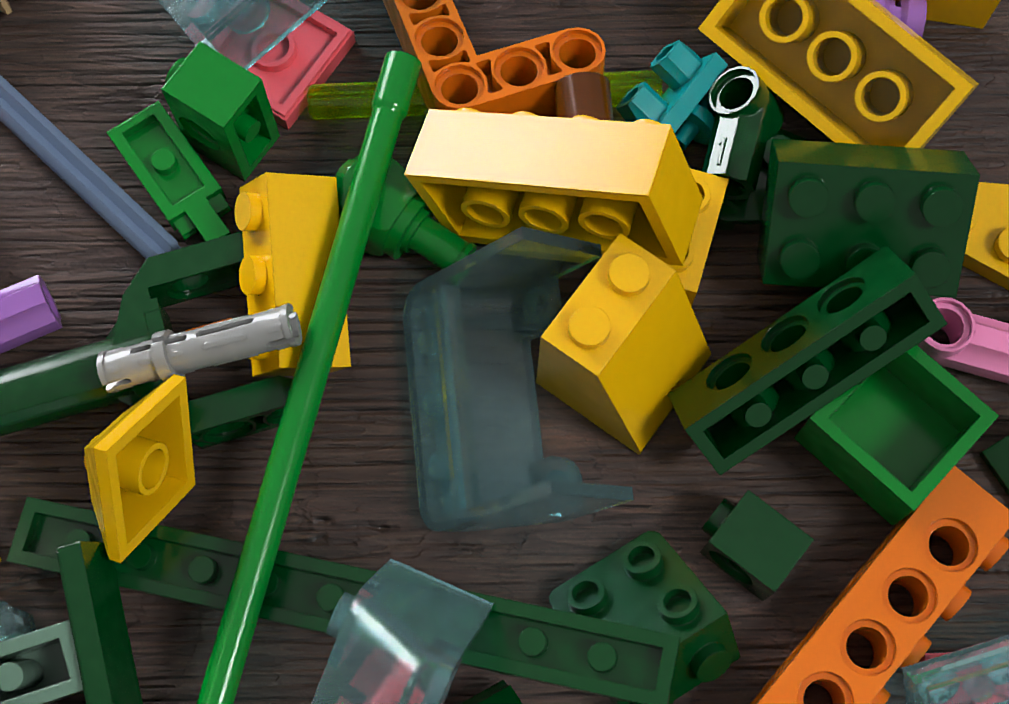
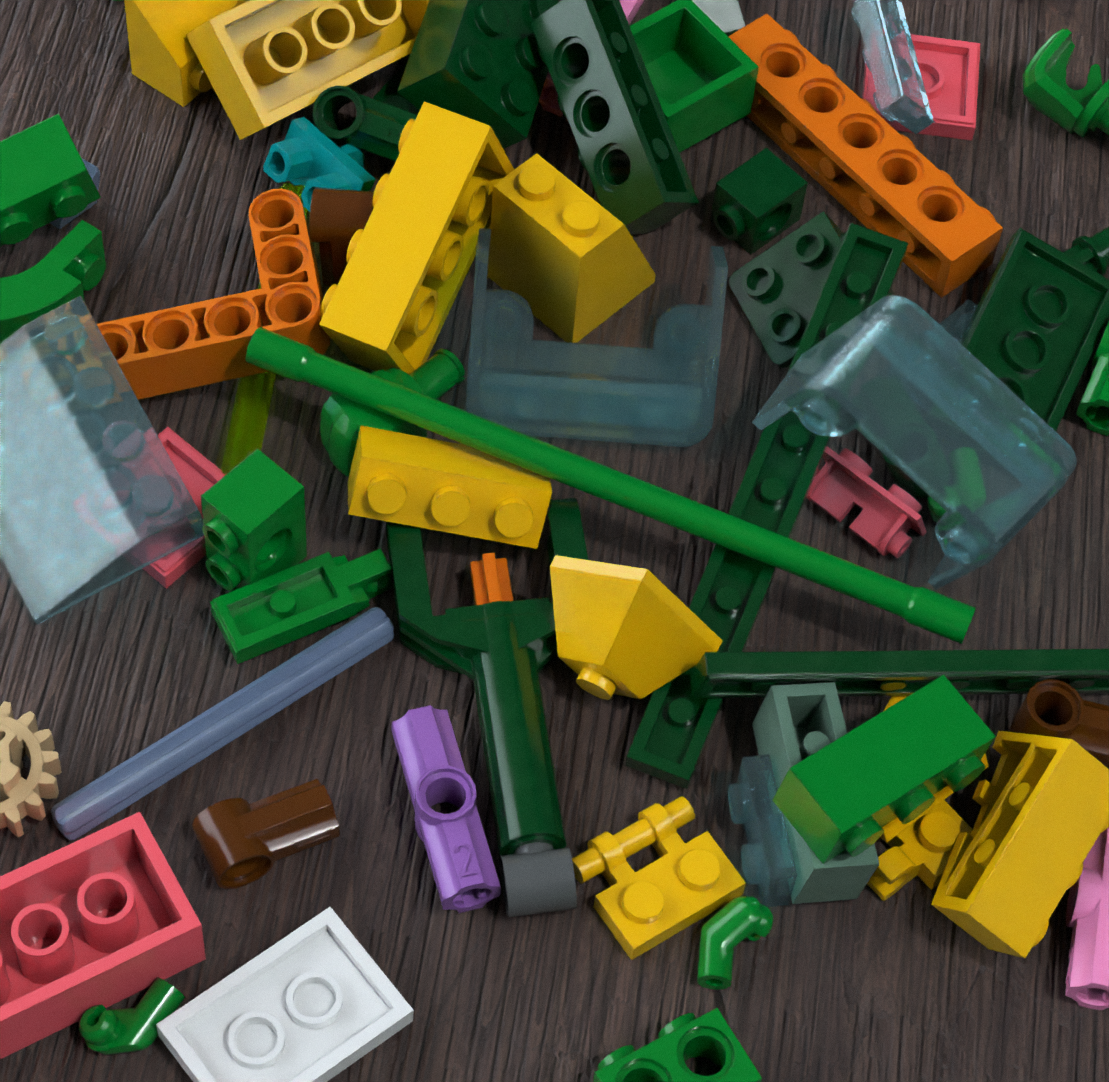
camera: 85 degrees left, 15 degrees down
(199, 348) = (525, 571): light grey pin -> none

